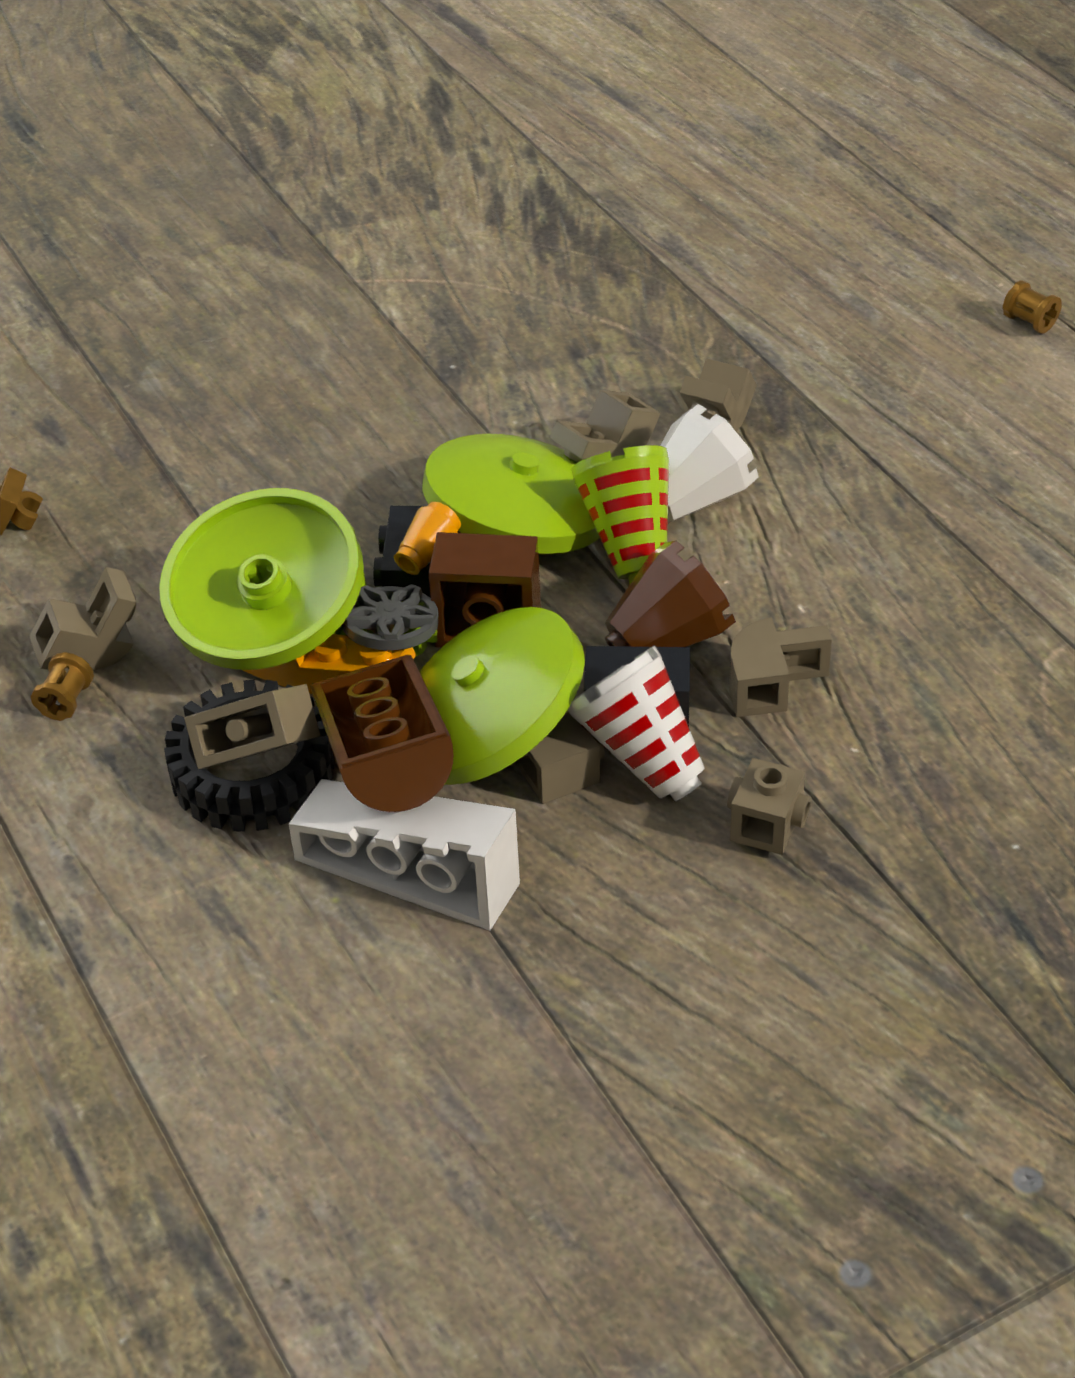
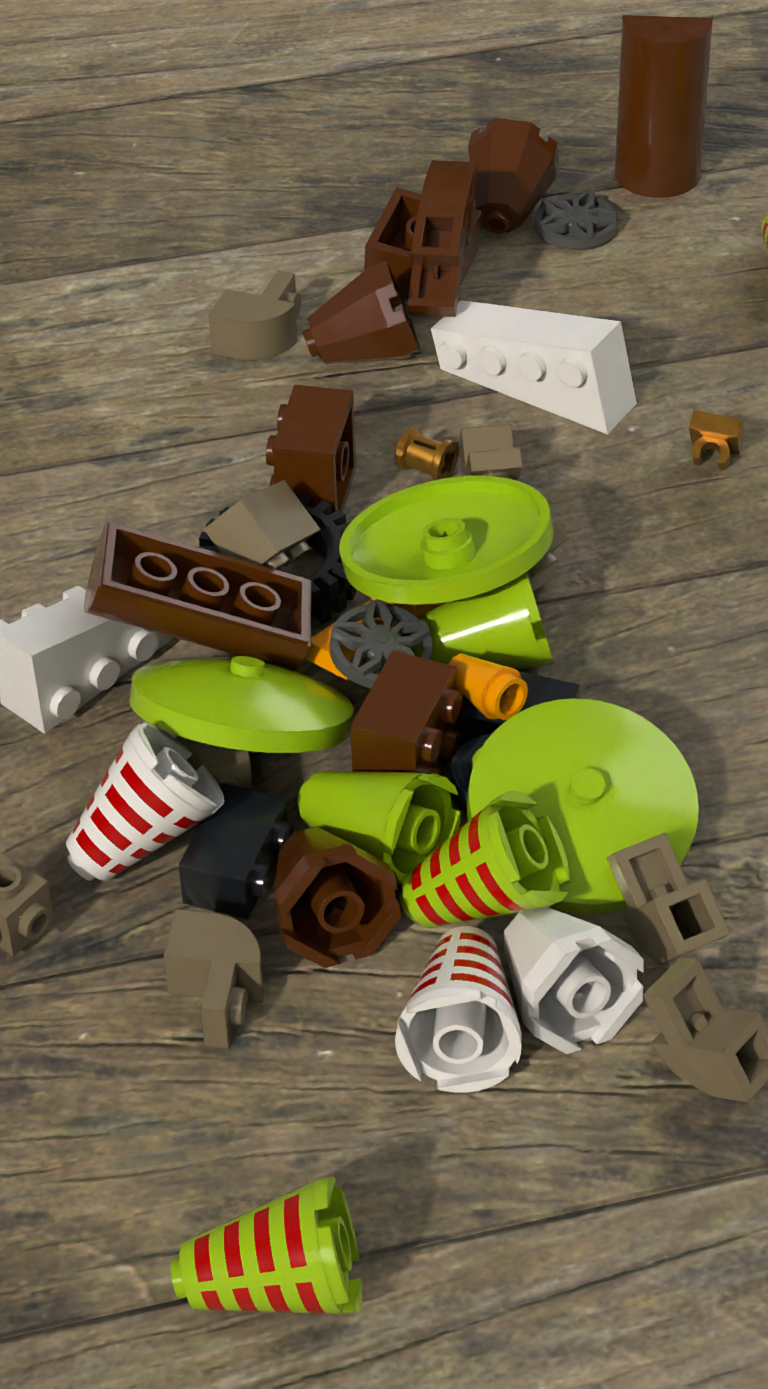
camera: 105 degrees right, 0 degrees up
(107, 736) = (315, 444): none -> reddish brown brick
(584, 578) = (383, 813): none -> lime cone
(746, 514) = (460, 1016): none -> white cone
(1015, 551) = (276, 1257): none -> lime cone

